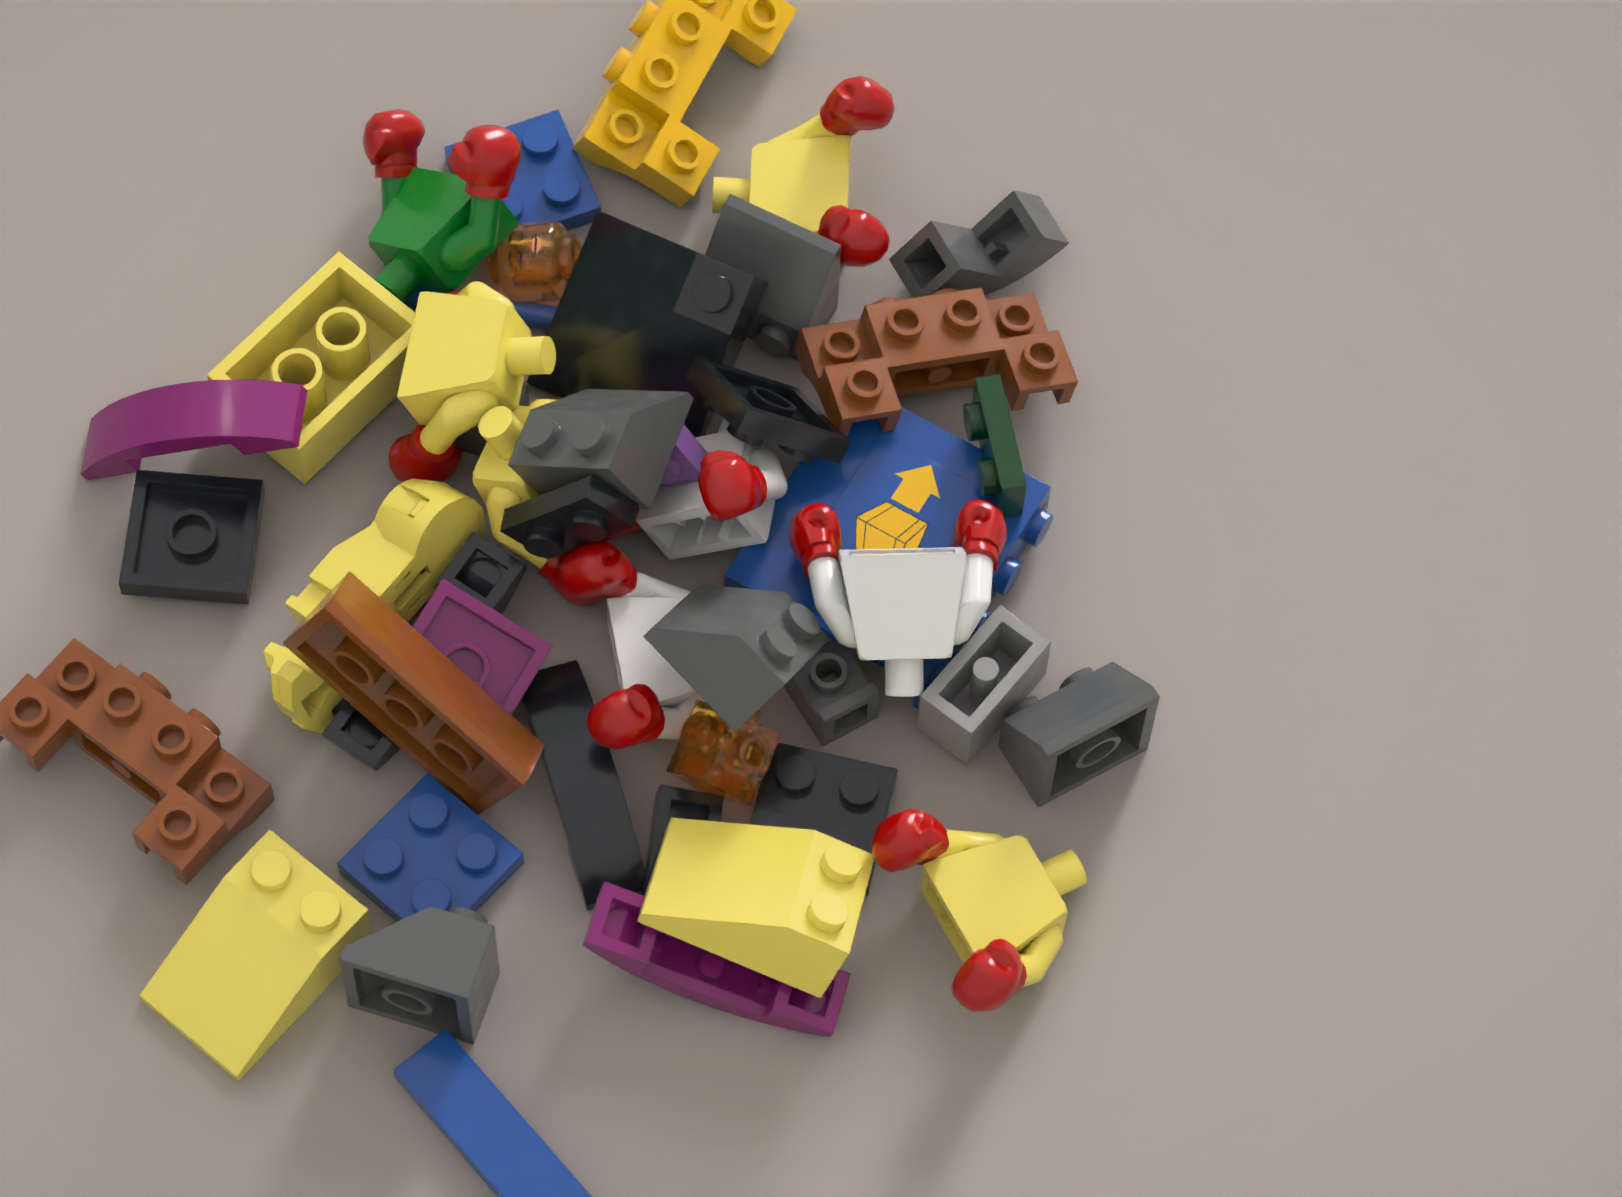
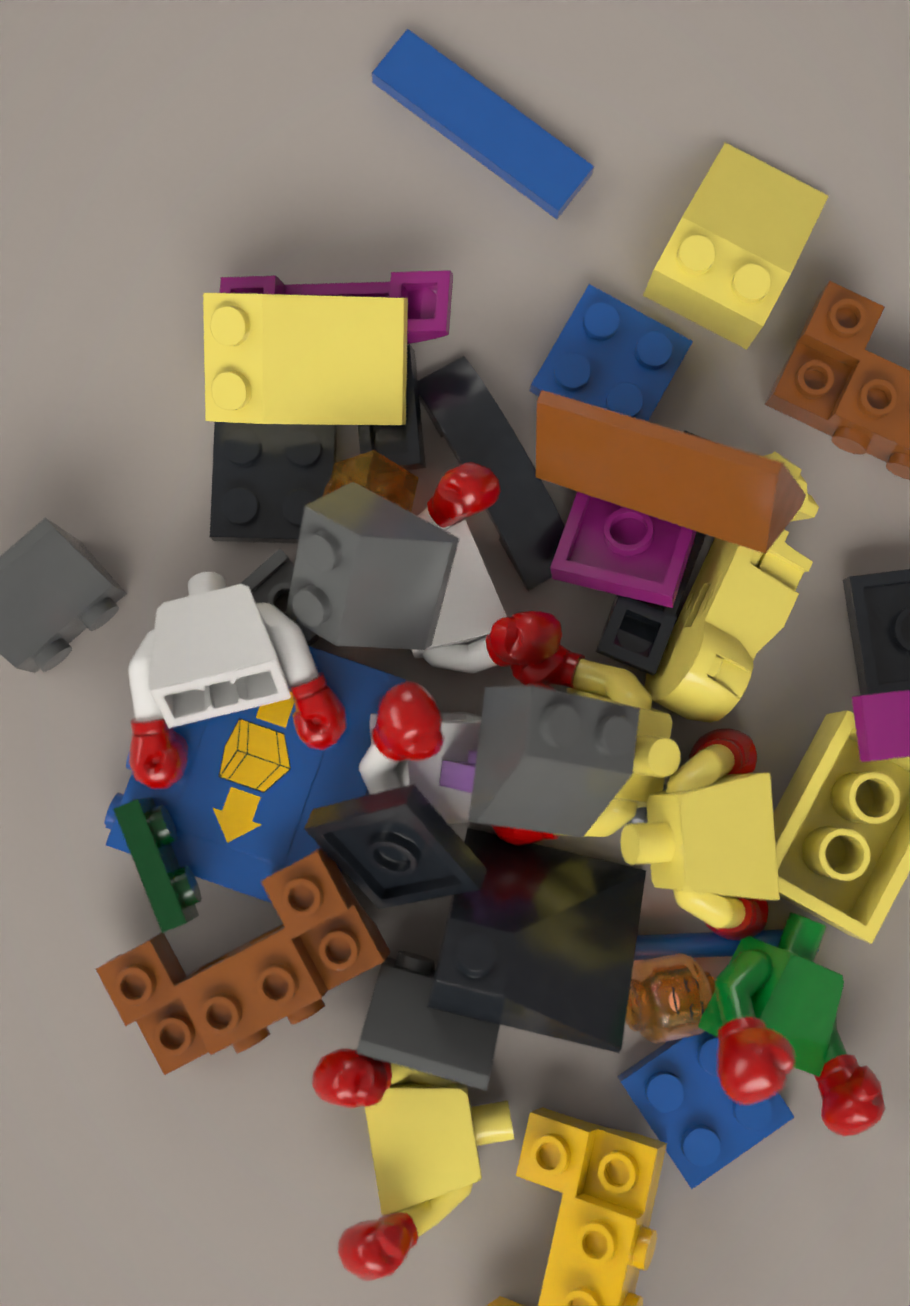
camera: 165 degrees right, 20 degrees up
(426, 971) = (587, 227): dark grey slope -> none
(568, 517) = (548, 667): black plate -> none
(982, 684) = (128, 617): light grey brick -> none
(989, 899) = (89, 411): light yellow torso -> none
(991, 255) = (227, 1111): dark grey brick -> none

